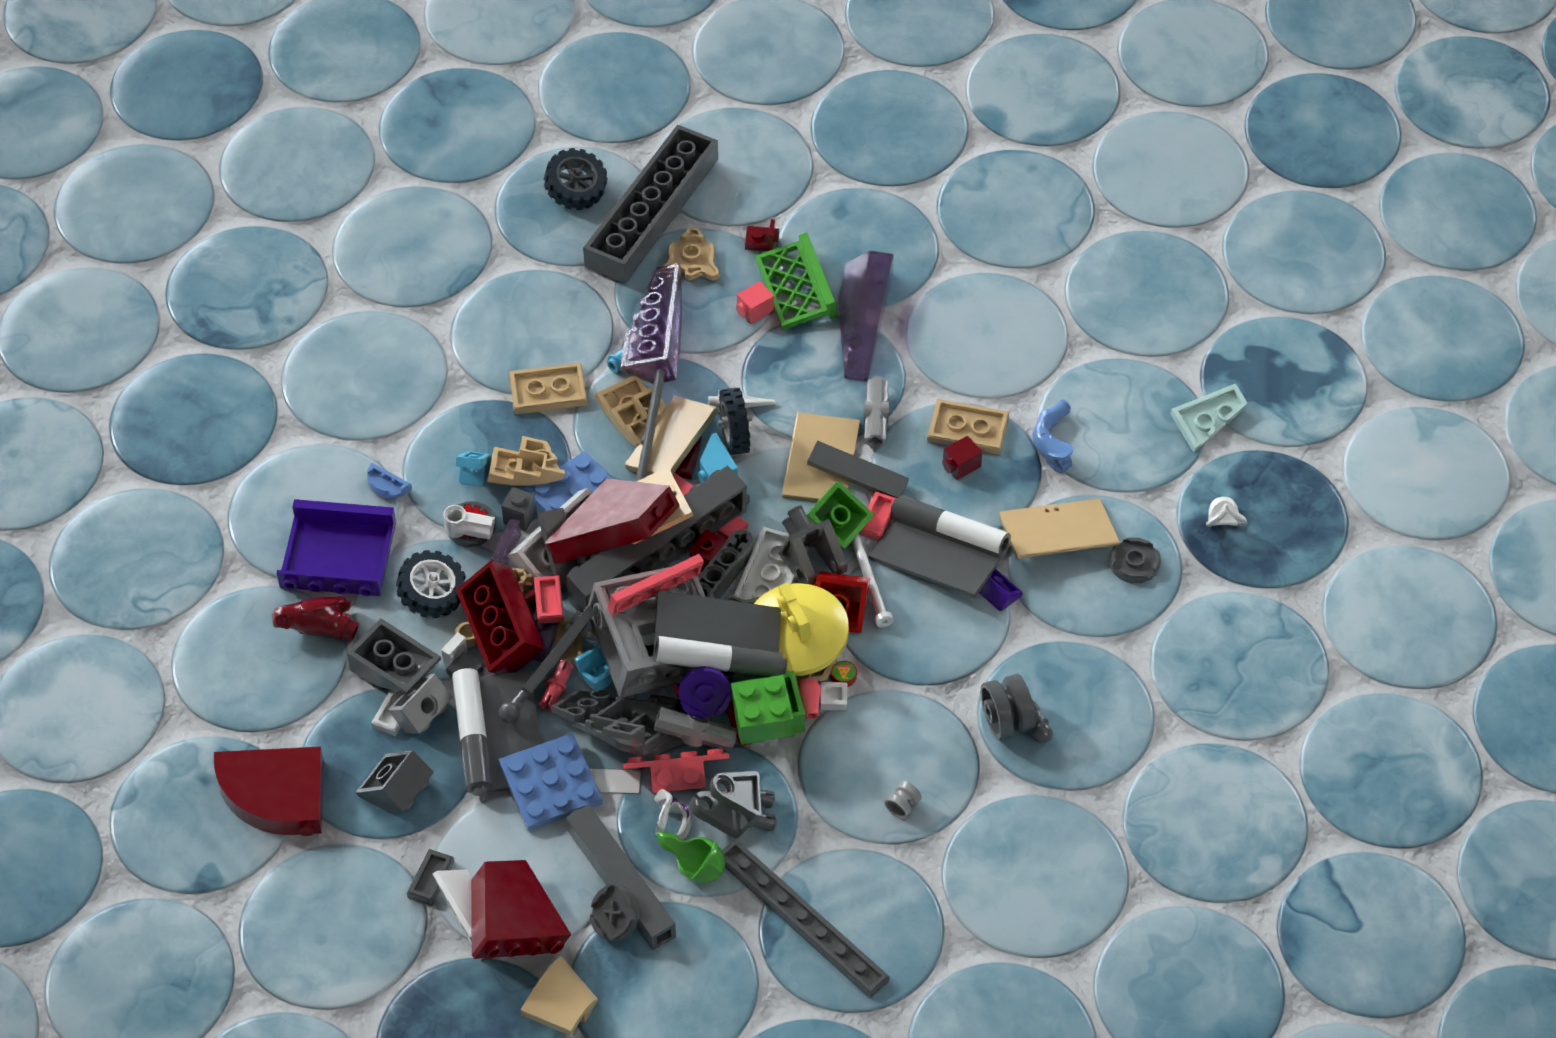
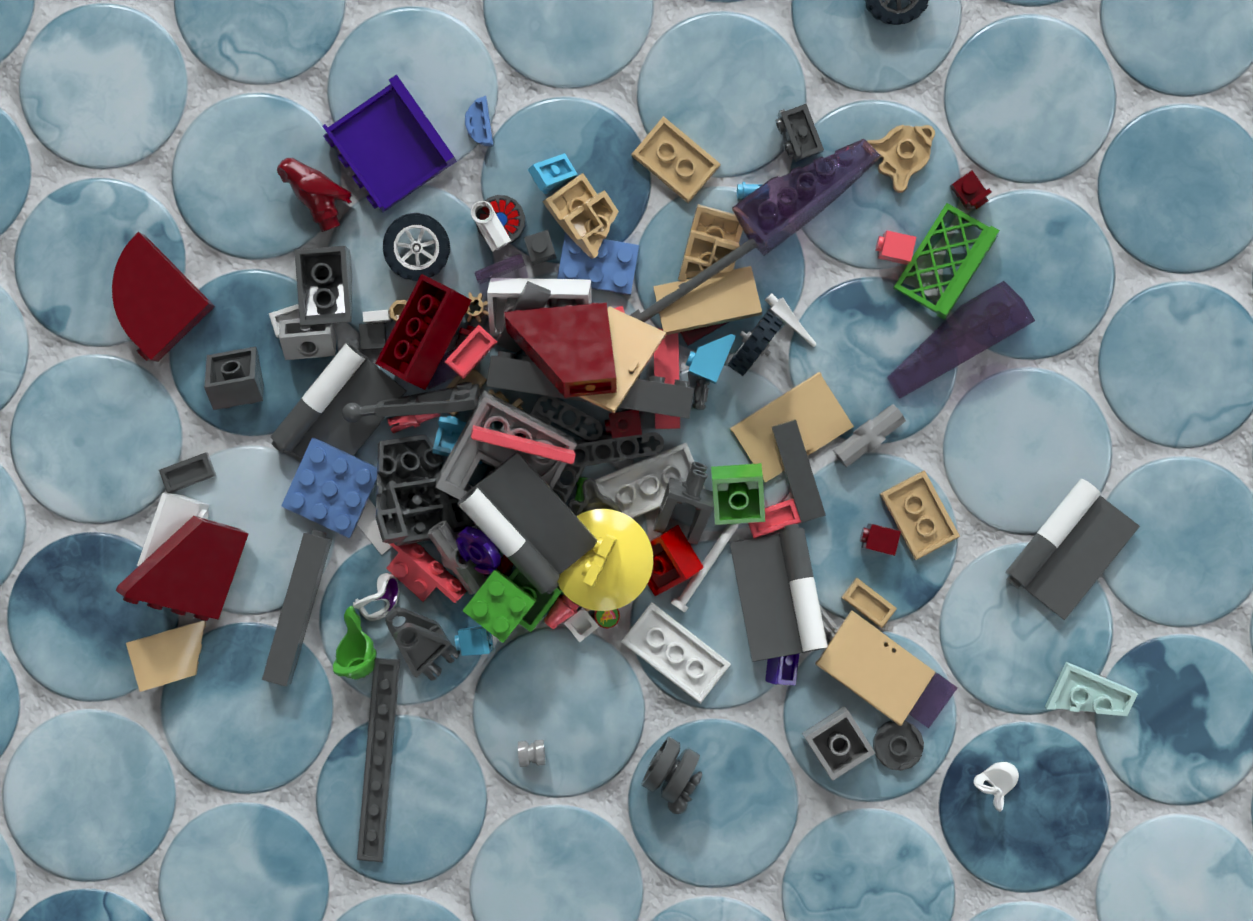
camera: 40 degrees right, 35 degrees up
(611, 301) = (799, 132): none -> dark grey bracket
(614, 912) = (261, 633): dark grey tile -> none
(650, 203) = (925, 75): dark grey brick -> none
(774, 763) = (474, 641): none -> medium azure slope
(919, 650) = (676, 652): none -> white tile
(1003, 500) = (869, 602): none -> tan tile
(1054, 451) = (948, 606): medium blue piece -> none
(1086, 354) = (1071, 549): none -> dark grey door
(1094, 588) = (838, 743): none -> light grey brick
(1120, 514) = (933, 700): none -> clear purple tile

